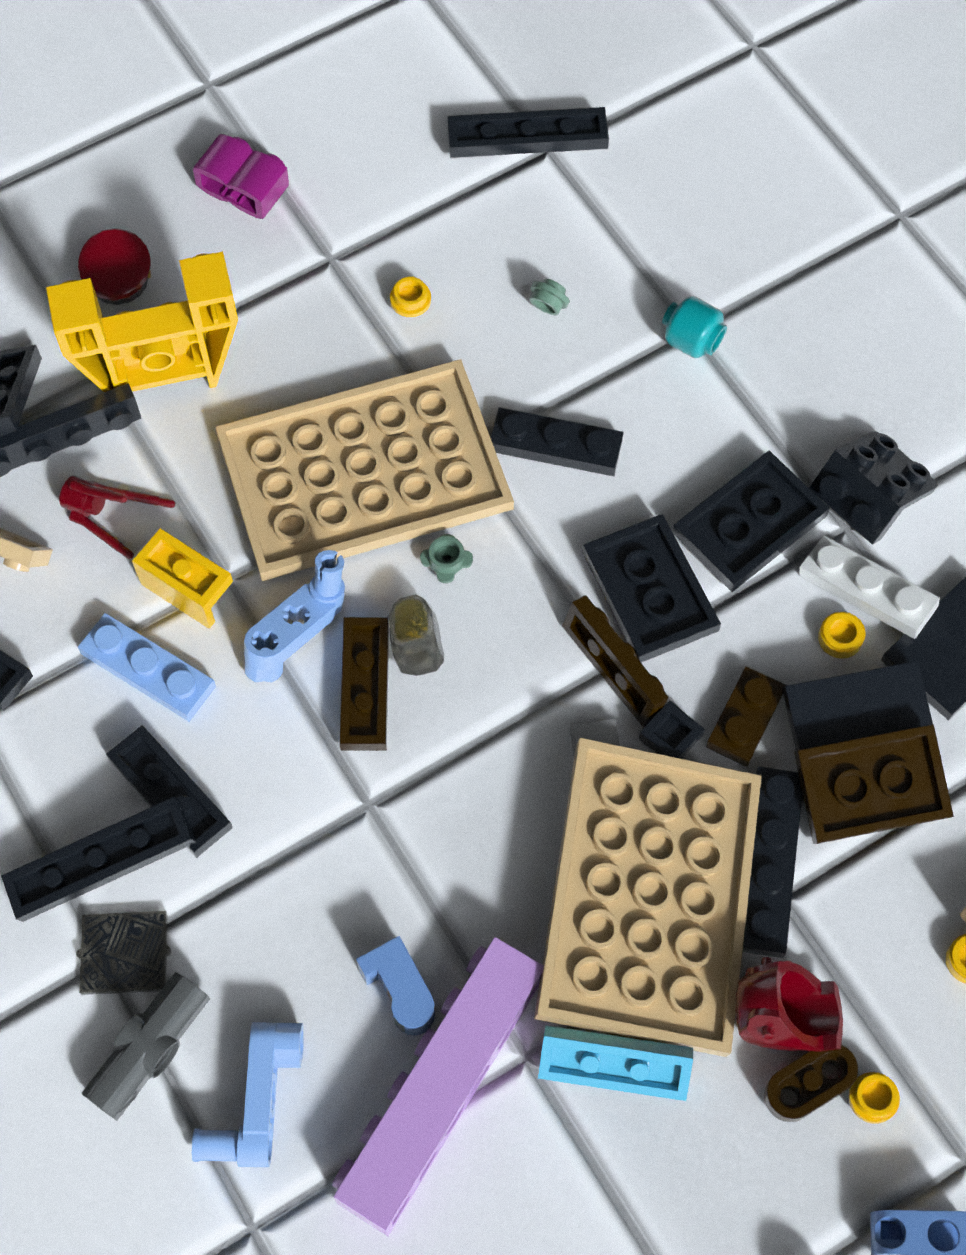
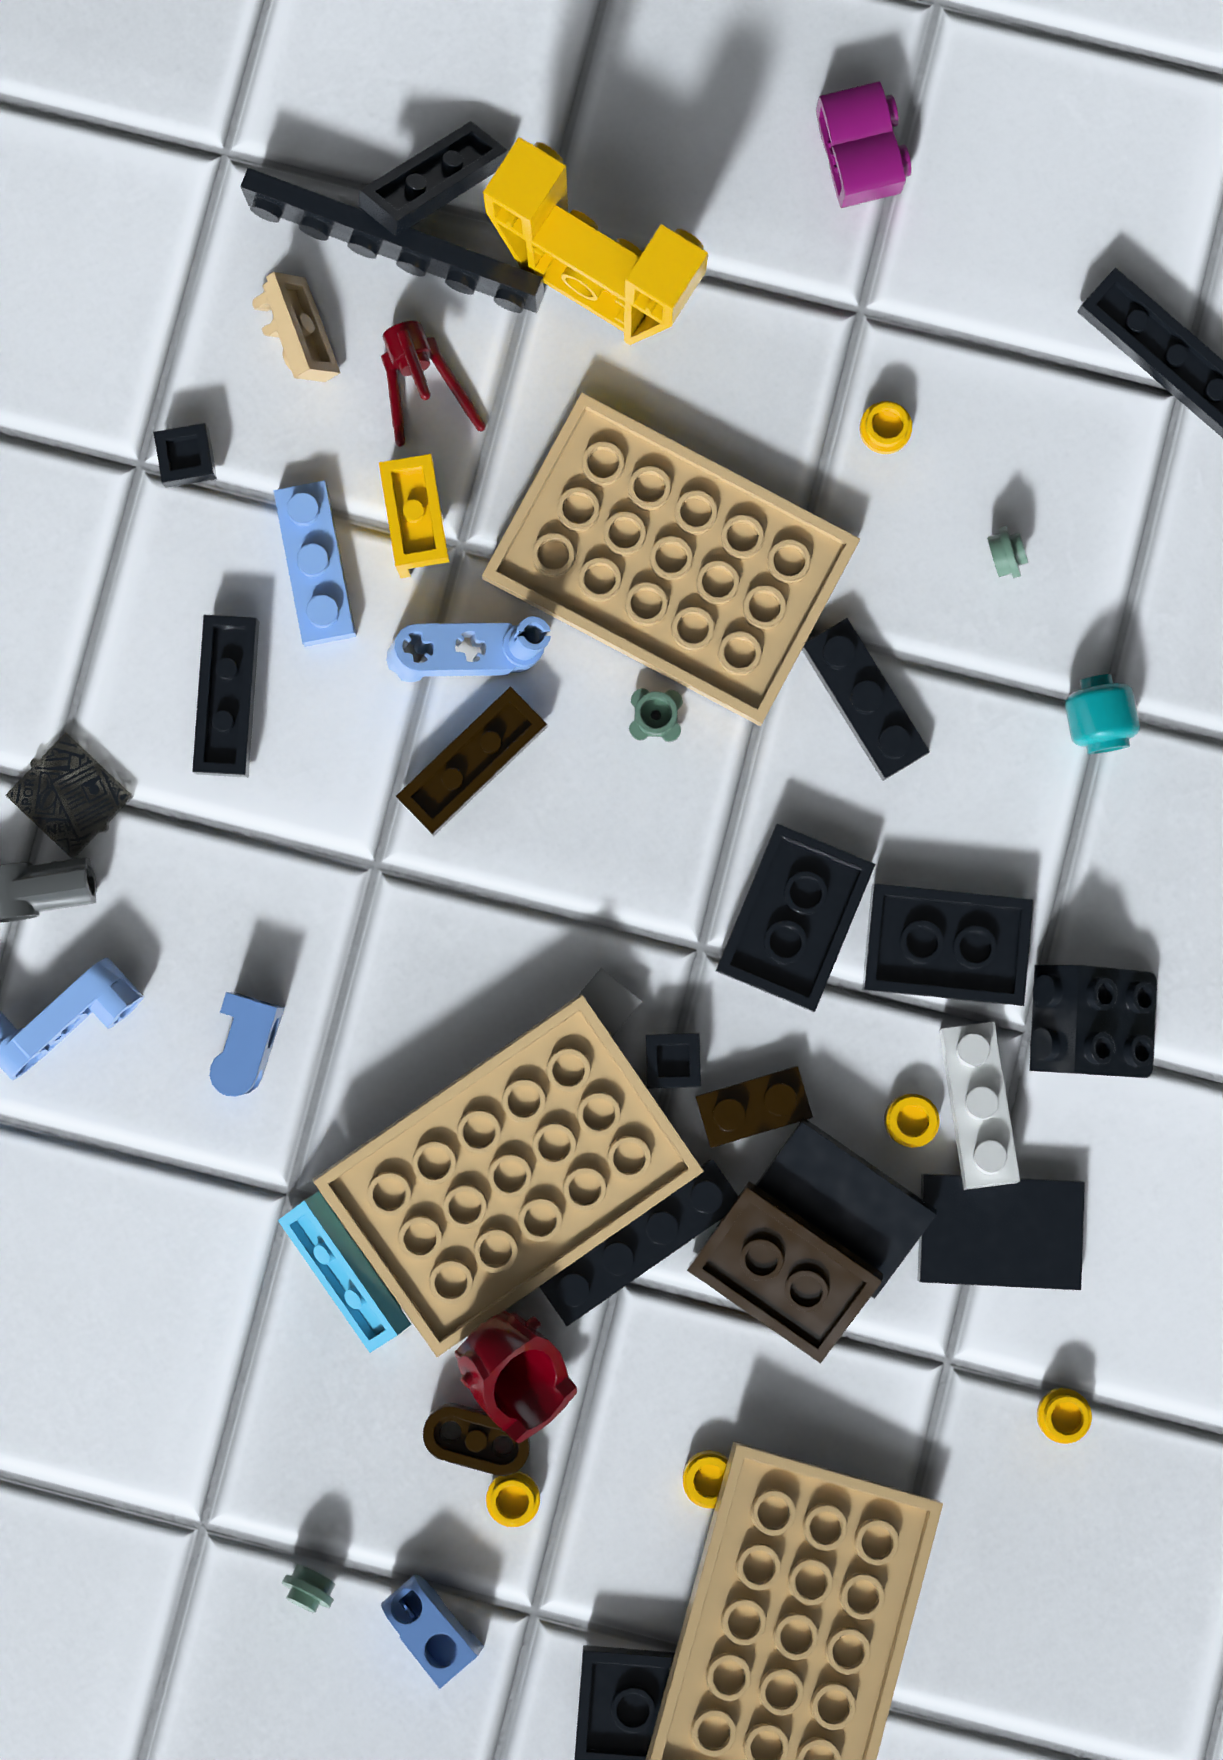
camera: 45 degrees right, 20 degrees up
(98, 859) = (113, 703): black plate -> none
(116, 264) = (652, 132): dark red piece -> none
(415, 636) = (553, 761): clear smoke rock -> none
(439, 1086) = (198, 1151): lavender brick -> none
(614, 660) = (695, 952): dark brown plate -> none

